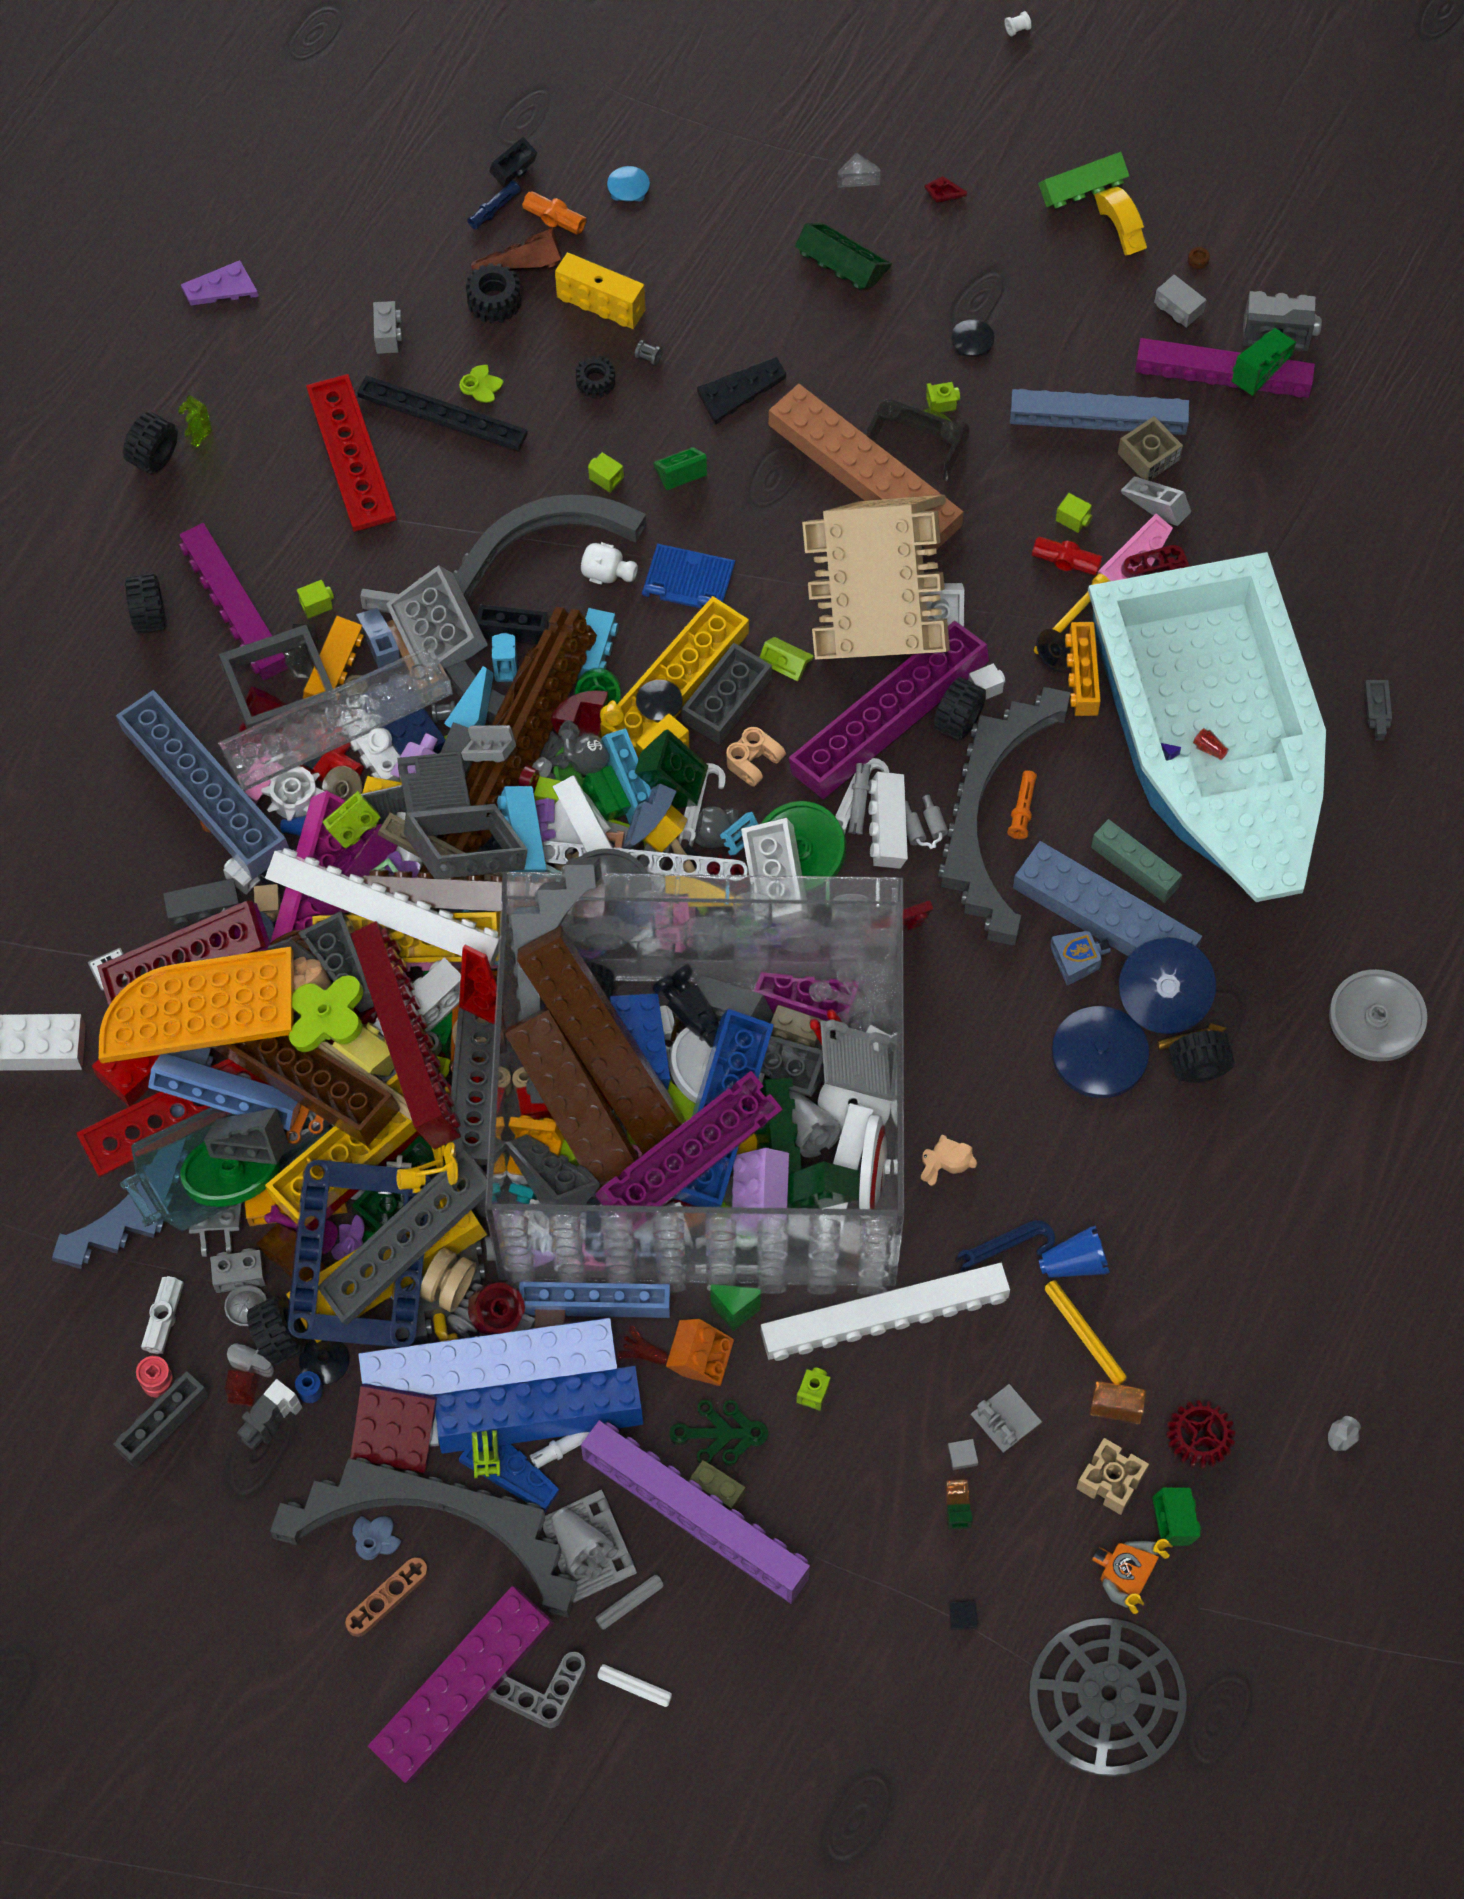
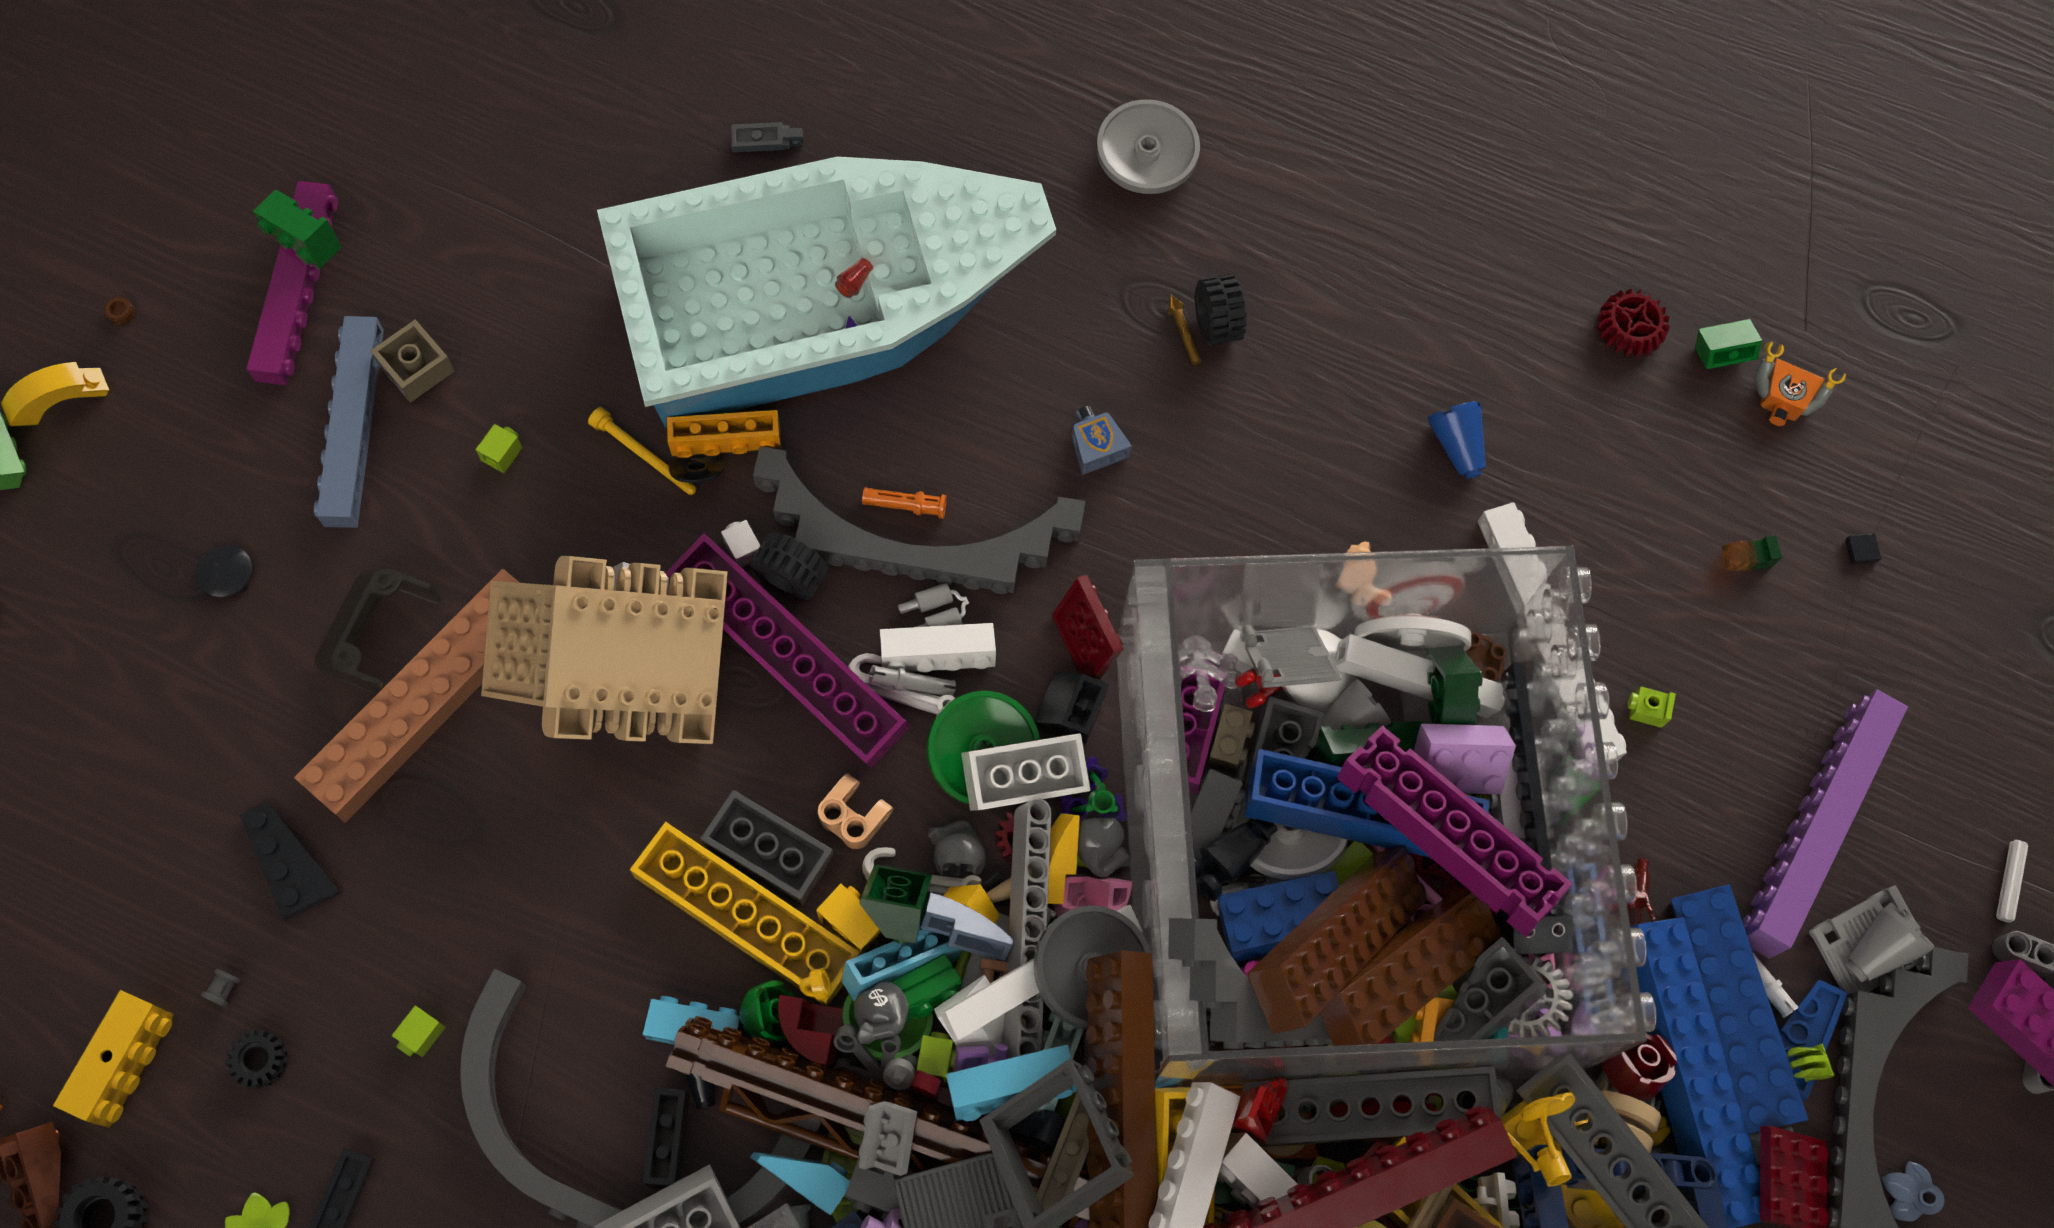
camera: 100 degrees left, 5 degrees up
(389, 1599) = (1976, 1172): nougat beam -> none
(504, 657) = (720, 1142): medium azure brick -> none
(605, 563) = (568, 1019): white piece -> none
(629, 1602) = (1923, 893): light grey axle -> none
(658, 699) = (792, 926): black dish -> none
(681, 467) = (410, 932): green slope -> none
(687, 576) = (582, 913): blue window -> none
(700, 1352) = (1644, 836): orange slope -> none
(719, 1484) = (1784, 803): olive brick -> none
(722, 1433) = (1718, 803): dark green plant -> none
(734, 849) = (969, 821): medium azure tile -> none
(785, 658) = (707, 781): lime panel -> none
(842, 255) = (77, 736): dark green slope -> none
(942, 397) = (323, 610): lime brick -> none
(962, 1454) = (1692, 553): light grey tile -> none
(1005, 1418) = (1646, 510): light grey hinge -> none
(1006, 1242) = (1445, 507): dark blue piece -> none
(1067, 555) = (560, 456): red piece -> none
(1085, 1332) = (1537, 434): yellow axle -> none
(1094, 902) = (1041, 411): sand blue brick -> none
(1100, 1052) = (1210, 420): dark blue dish -> none
(1102, 1711) = (1909, 422): dark grey dish -> none
(1108, 1462) = (1698, 402): tan brick -> none
(1118, 1402) = (1610, 401): clear orange hinge -> none
(1136, 861) = (975, 380): sand green brick -> none
(1148, 538) = (562, 380): bright pink wing -> none
(1158, 499) = (482, 356): light grey slope -> none
(1159, 554) = (579, 341): dark red beam -> none
(1167, 985) = (1135, 345): dark blue dish -> none
(1180, 301) = (190, 327): light grey brick -> none
(1289, 315) = (228, 222): piece -> none
(1344, 1434) = (1610, 194): light grey rock -> none

